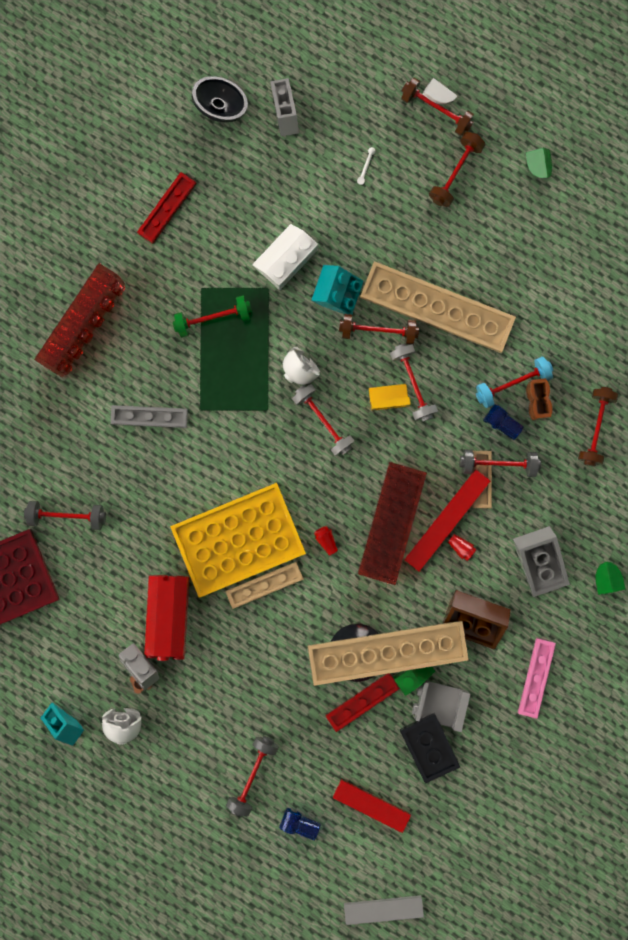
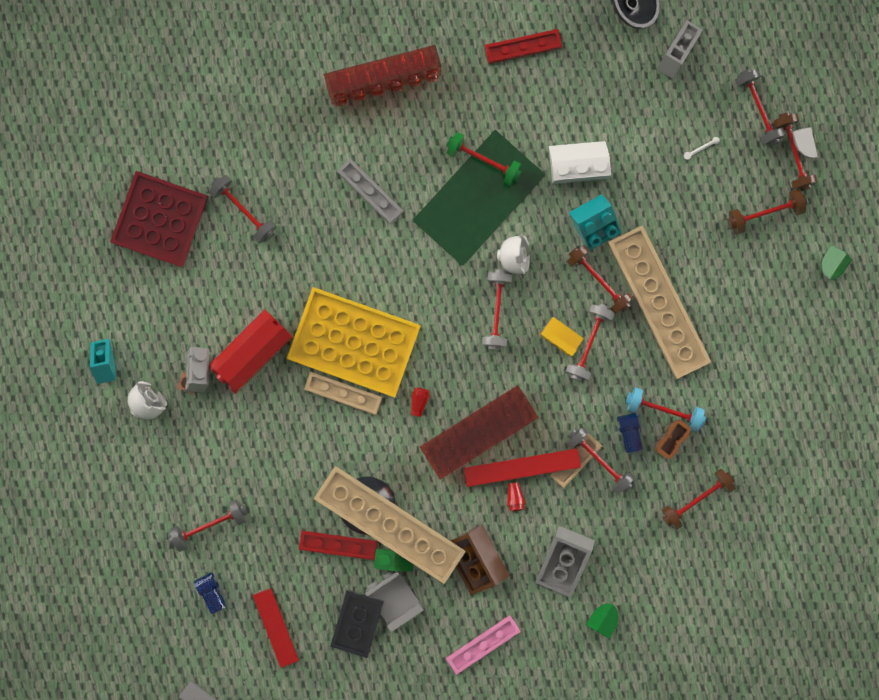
camera: 35 degrees right, 0 degrees up
(354, 84) = (748, 78): none -> dark grey axle

